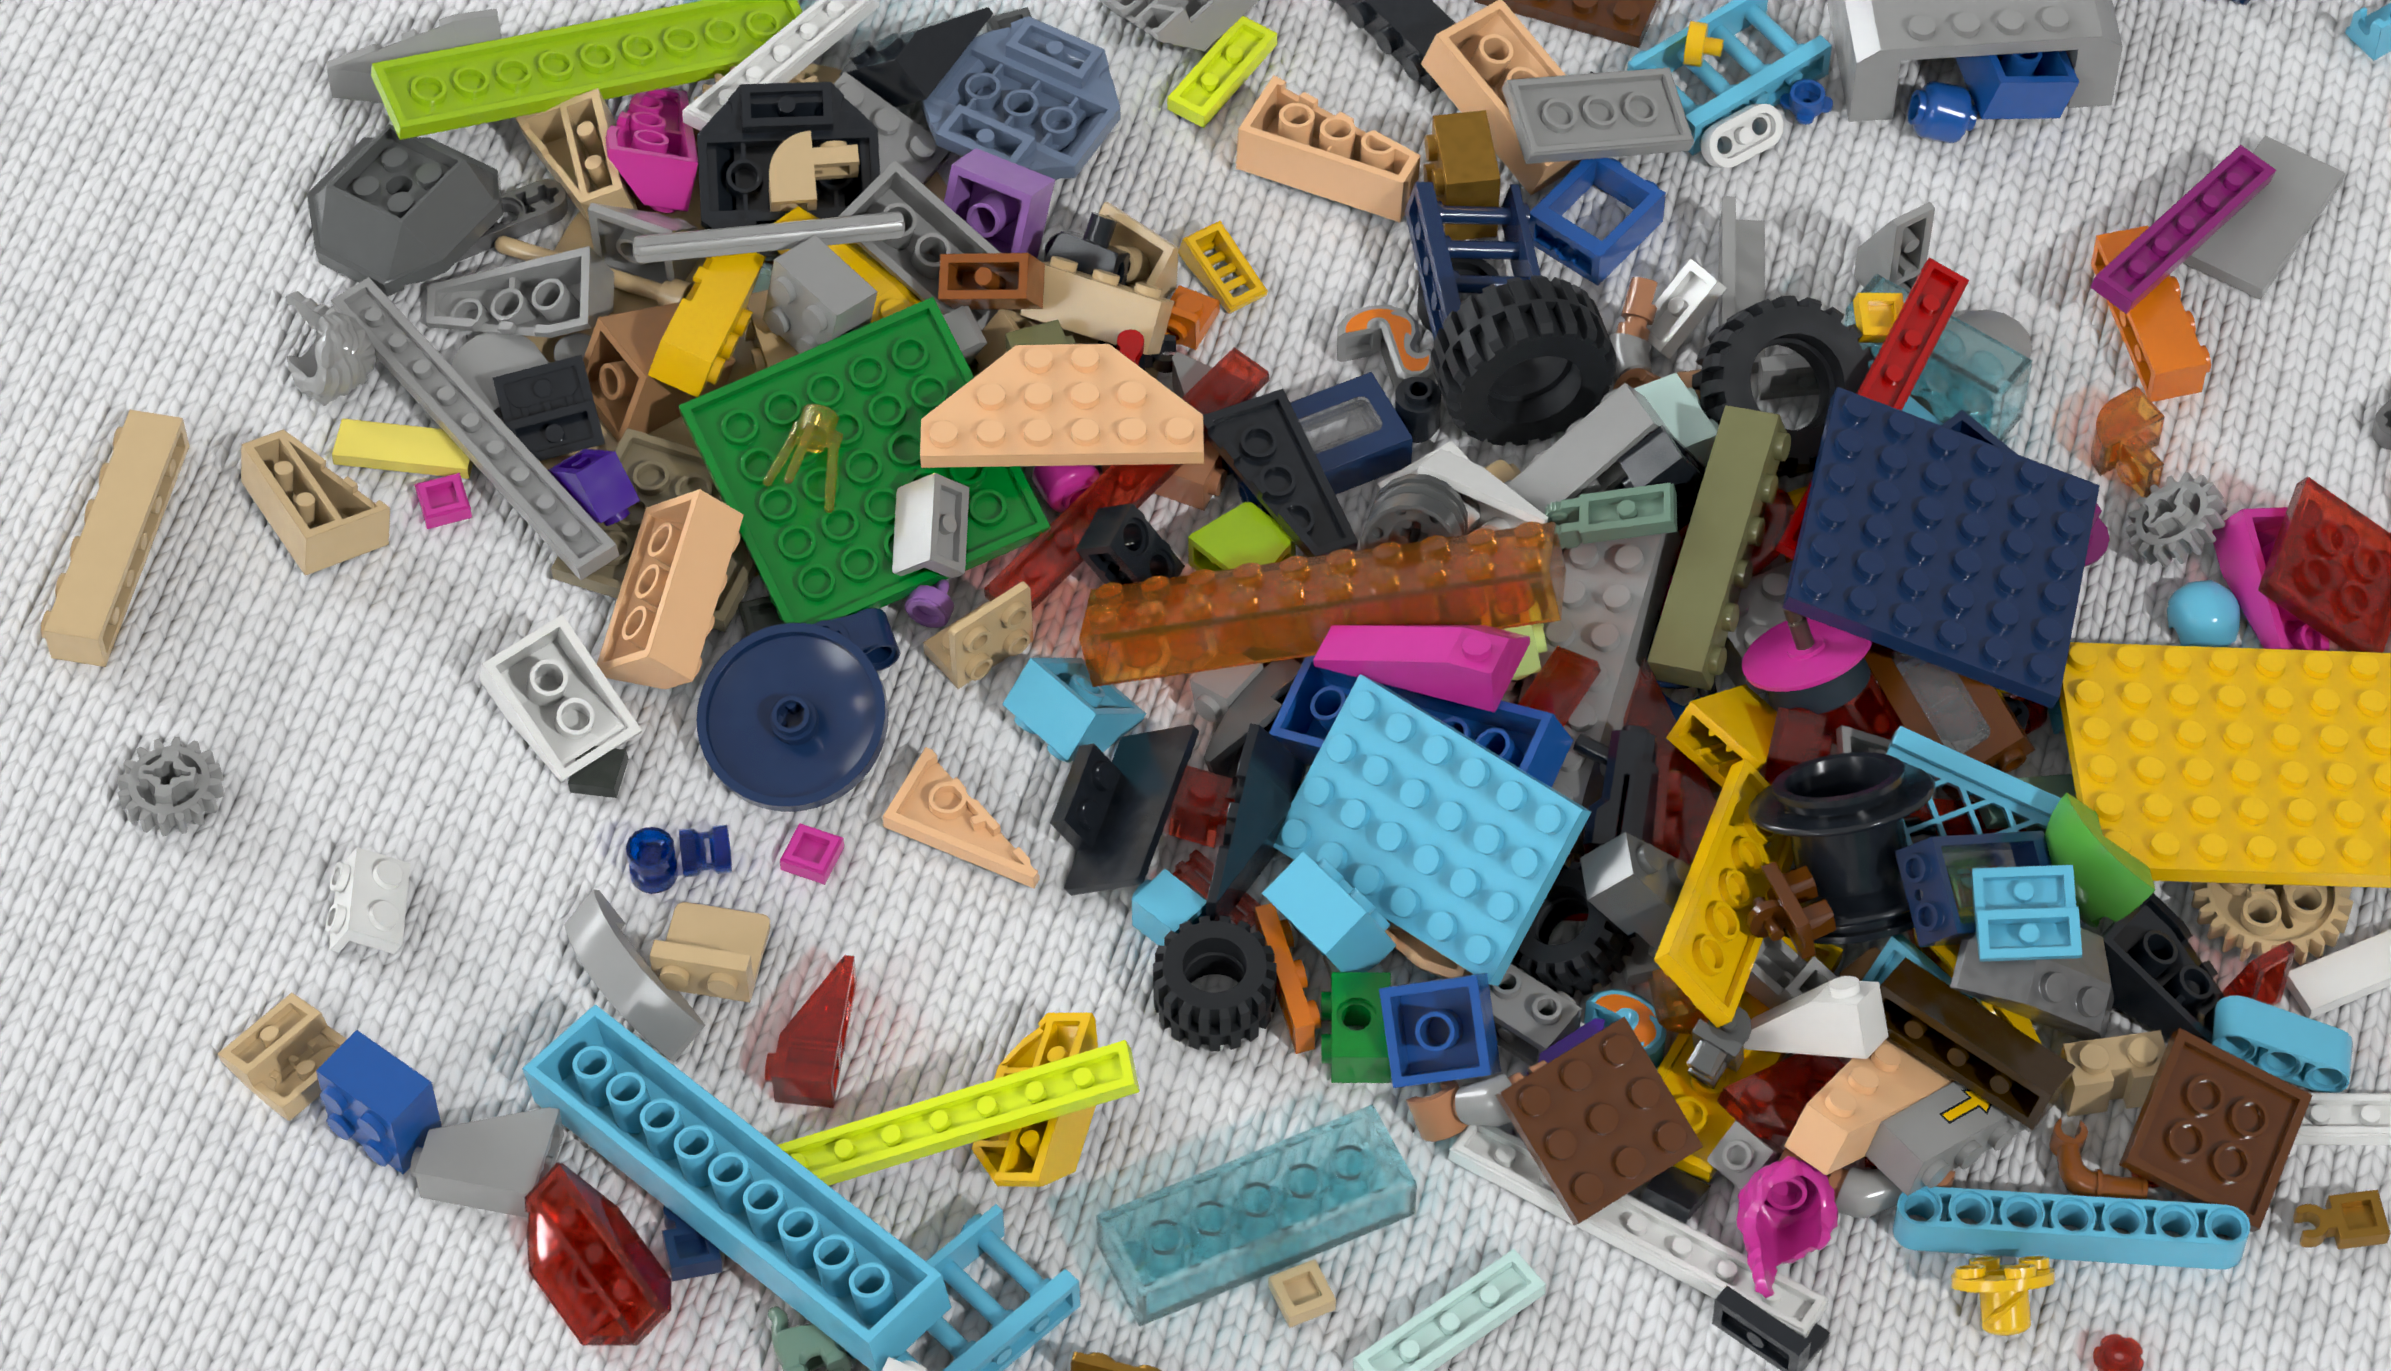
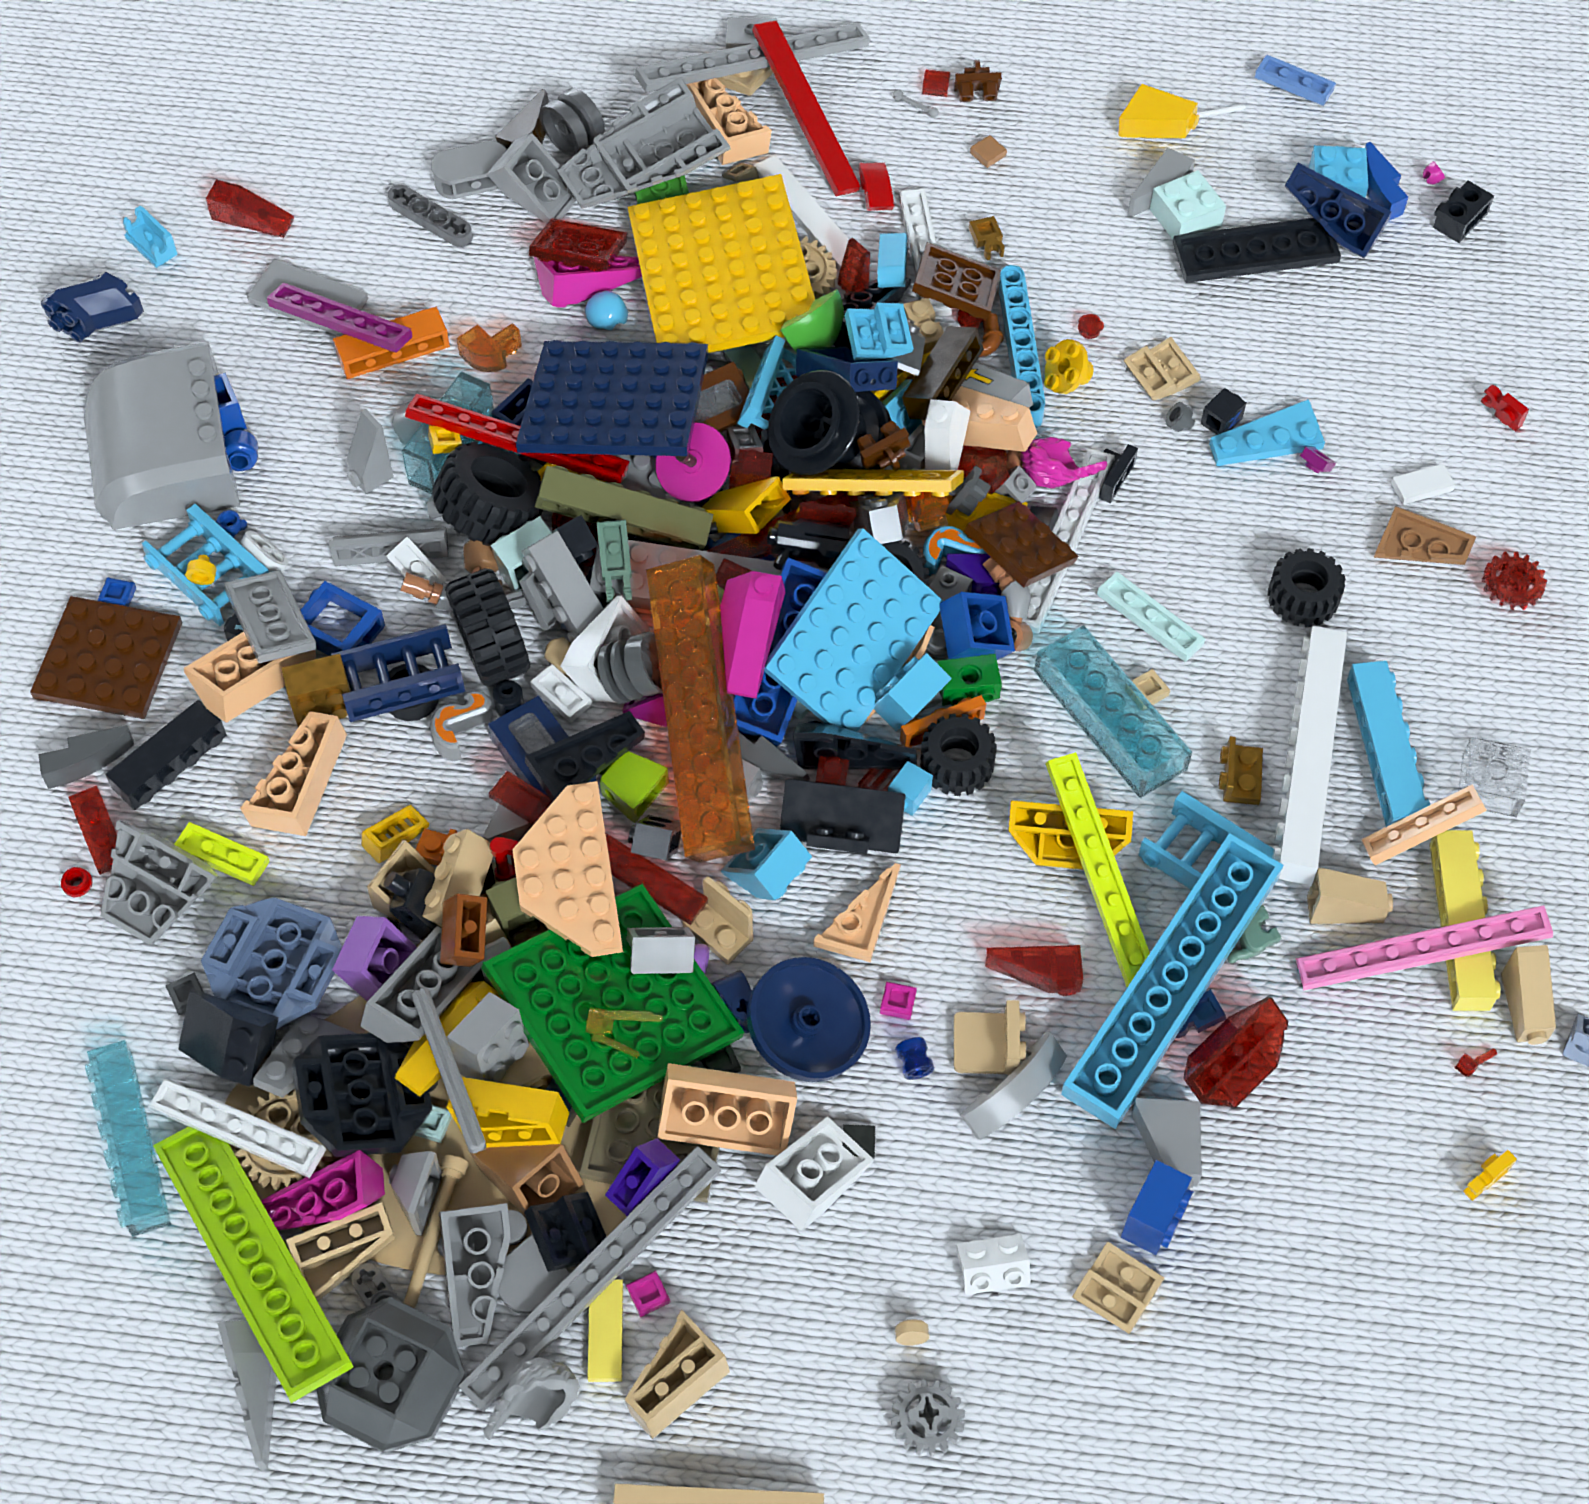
camera: 100 degrees left, 5 degrees up
(295, 786) = (912, 1332): none -> tan tile
(652, 860) = (928, 1082): clear blue wheel -> none
(798, 165) = (367, 1078): tan brick -> none
(2176, 519) = (556, 308): light grey gear -> none

